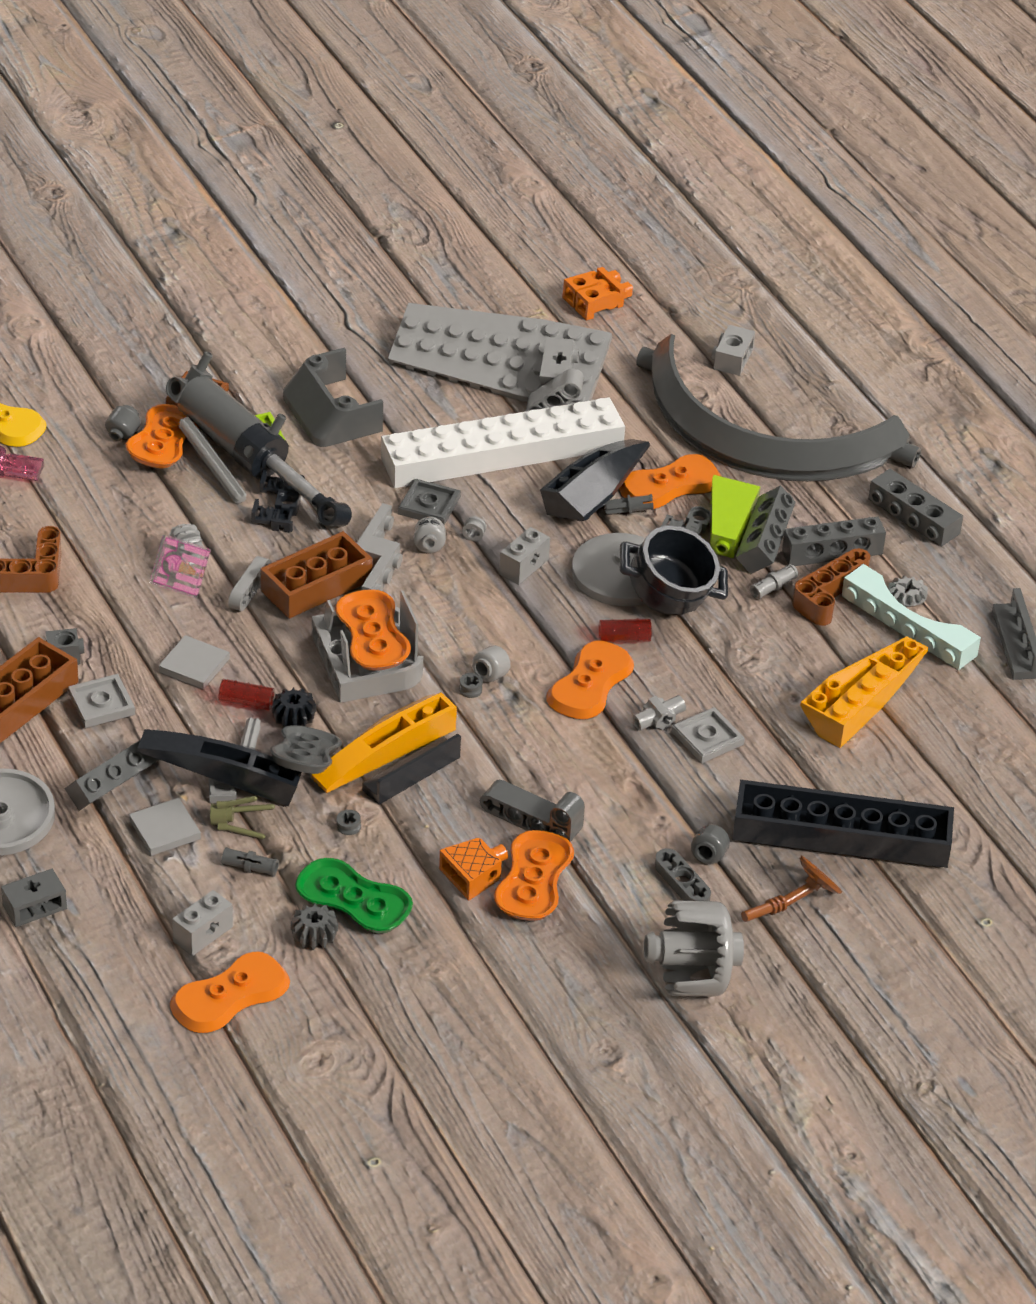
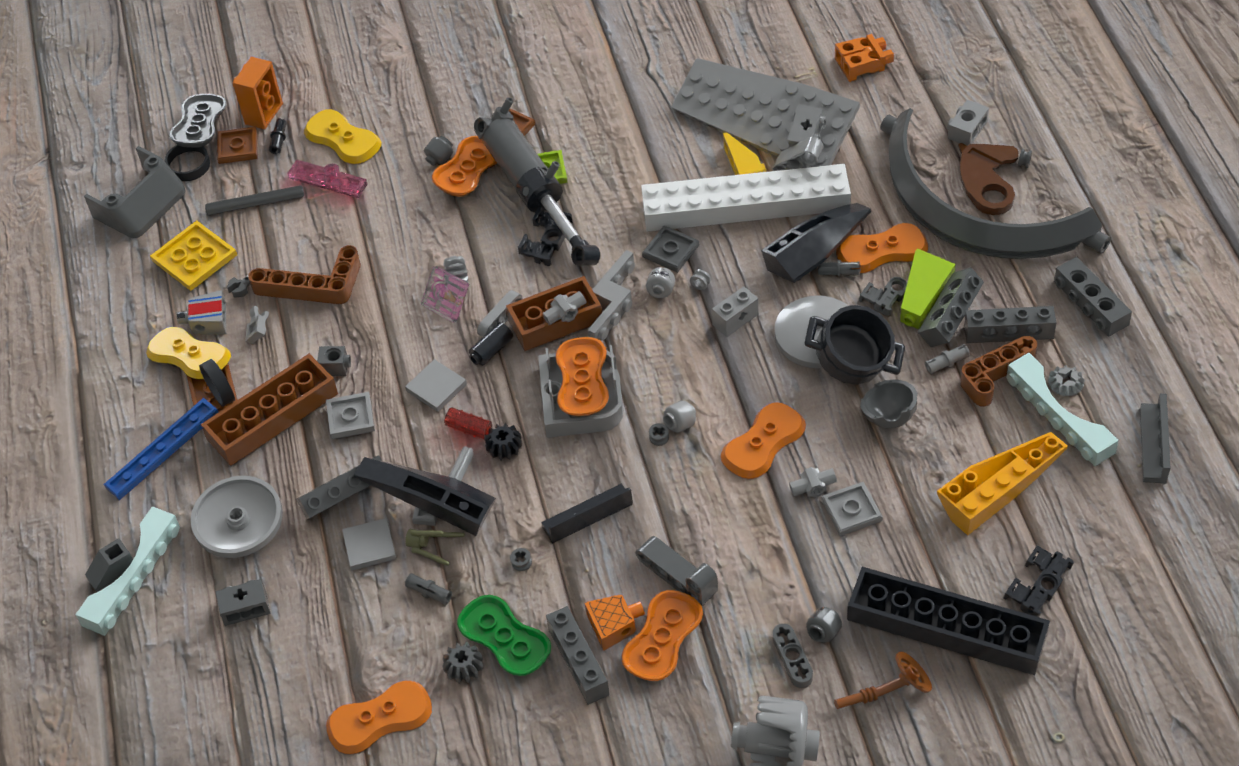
camera: 20 degrees right, 10 degrees up
(202, 922) = (371, 646): light grey brick -> none
(212, 460) = (500, 193): light grey axle -> none
(248, 613) = (490, 344): none -> black brick
(305, 749) = (497, 486): dark grey plate -> none
(320, 415) = (613, 163): dark grey windscreen -> none
(333, 562) = (564, 308): none -> light grey axle
(390, 739) = (573, 482): light orange wedge -> none
(445, 903) = (577, 655): none -> dark grey brick
(483, 401) = (740, 157): none -> yellow slope
(625, 630) = (803, 395): clear red axle -> none
(726, 627) = (890, 403): none -> dark grey cylinder
(758, 399) = (978, 175): none -> reddish brown animal
(806, 380) = (1025, 158): none -> dark grey bush
(941, 769) = (1036, 597): none -> black piece

